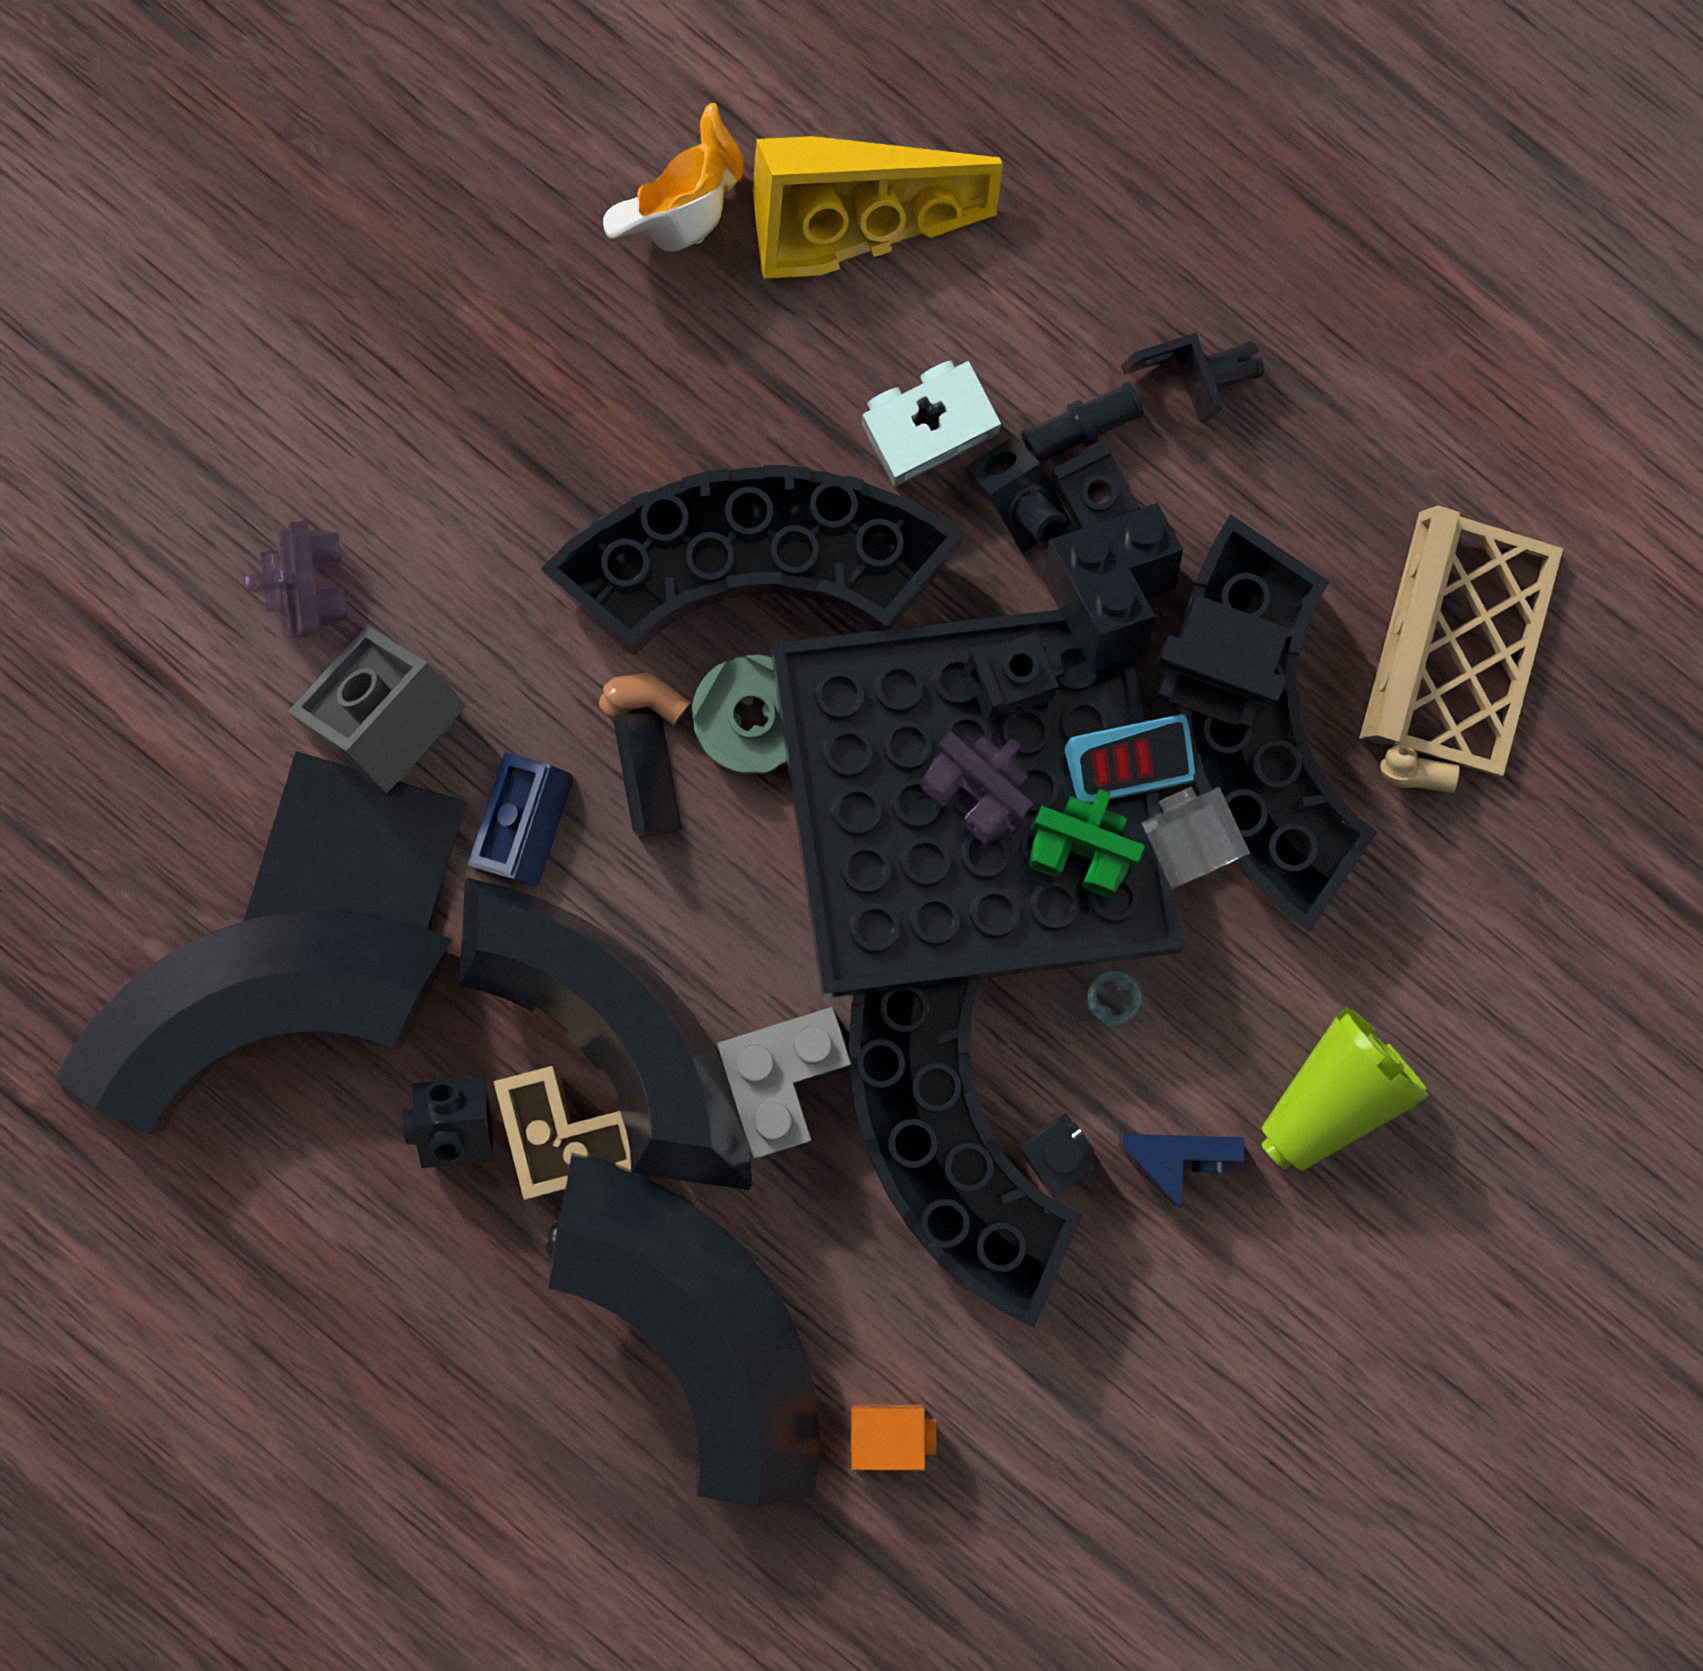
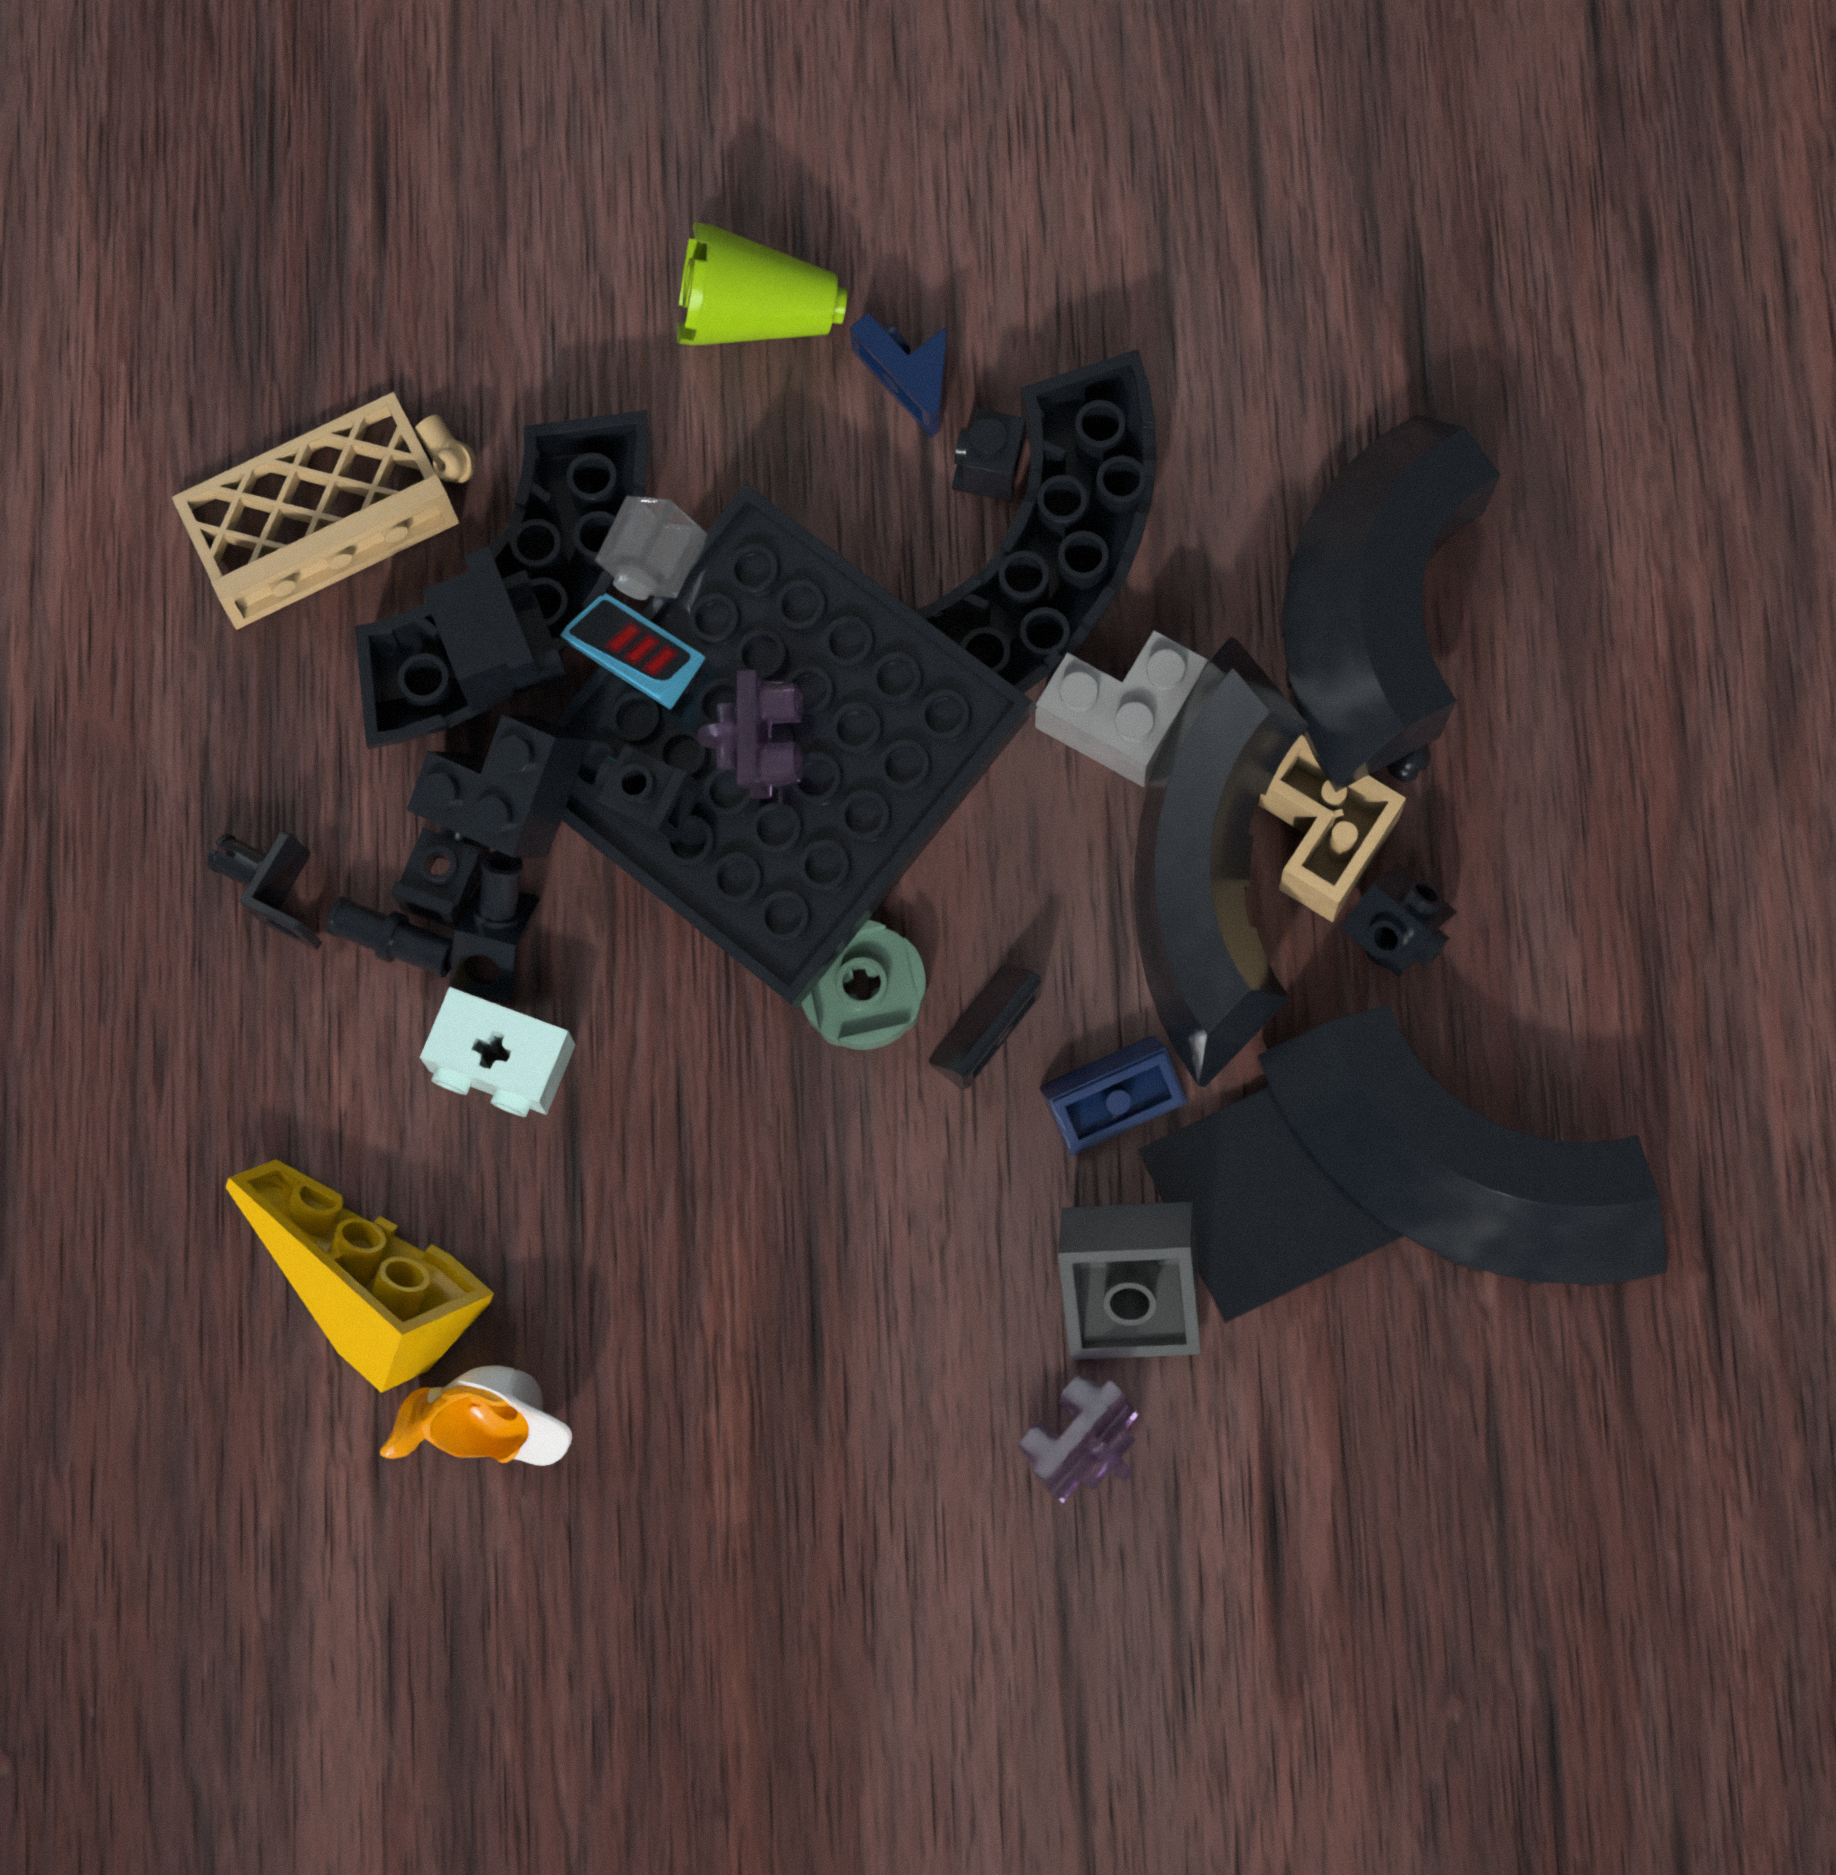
camera: 125 degrees left, 10 degrees down
(641, 691) = (924, 1089): nougat arm -> none
(750, 536) = (716, 1104): black brick -> none
(891, 1437) = (1319, 393): orange brick -> none
(1109, 853) = (726, 588): green hips -> none
(1124, 983) = (828, 505): clear light blue bush -> none

